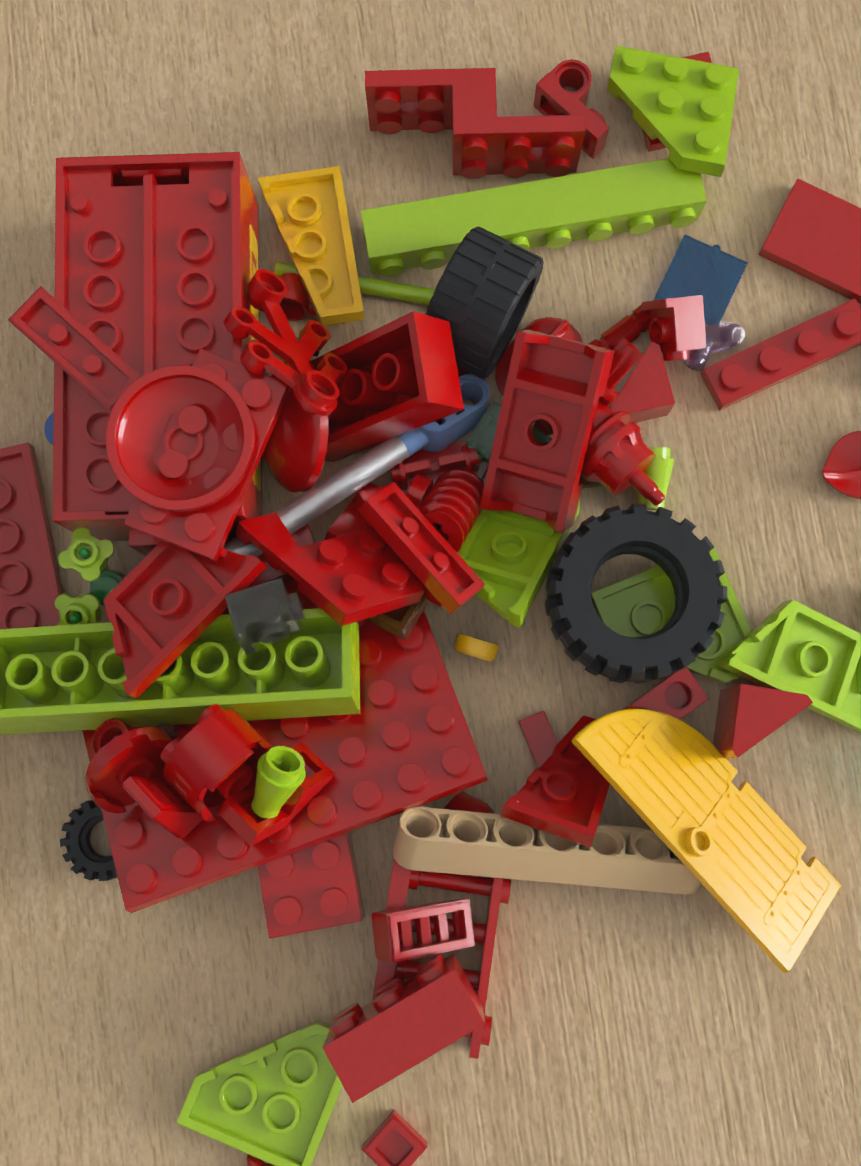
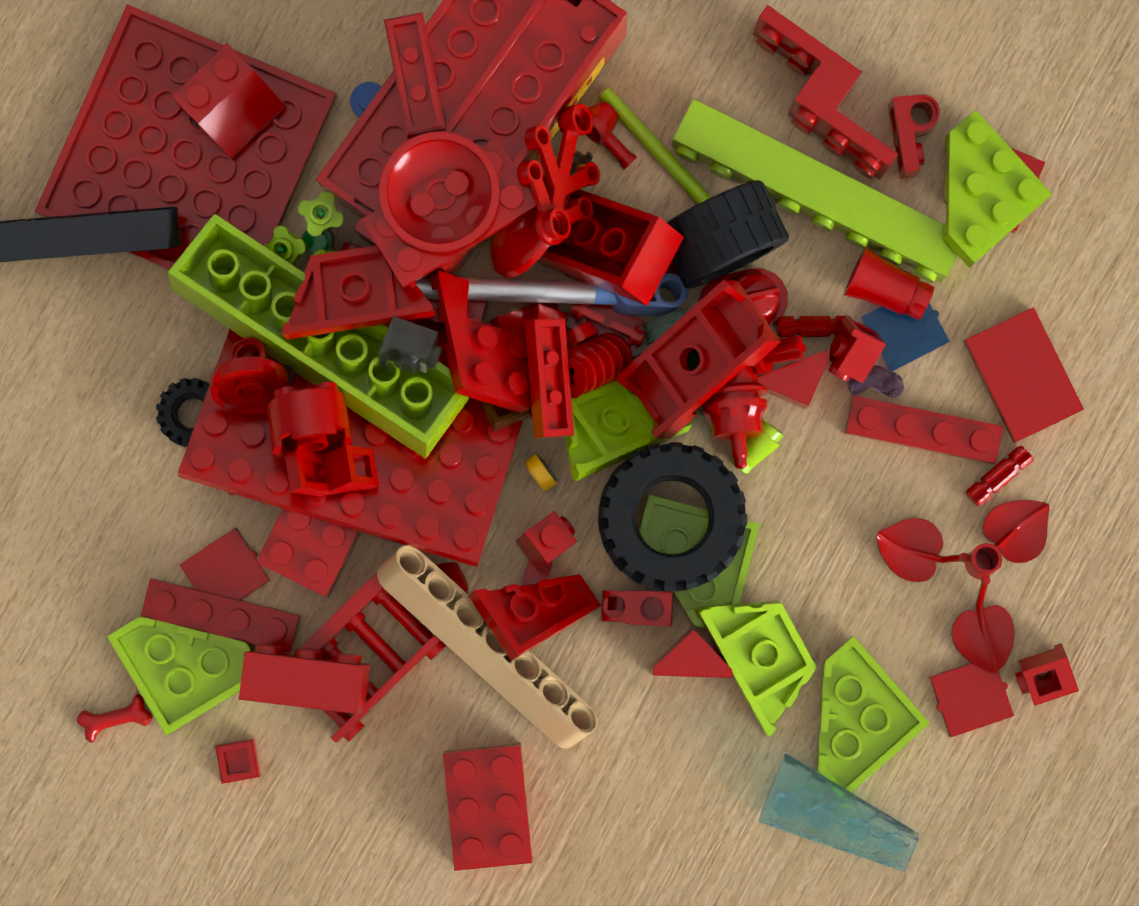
camera: 30 degrees right, 5 degrees up
(163, 804) = (254, 423): red slope -> none
(247, 968) = (226, 568): none -> red piece
(272, 1014) = (219, 614): none -> red plate
(277, 778) = (340, 461): lime cone -> none
(317, 233) = (652, 87): yellow wing -> none
(394, 934) = (341, 619): red slope -> none
(531, 705) = (547, 540): none -> red brick
(658, 249) = (888, 286): none -> red plant
(670, 1007) = (487, 807): none -> red brick
(714, 829) = (607, 721): yellow door -> none

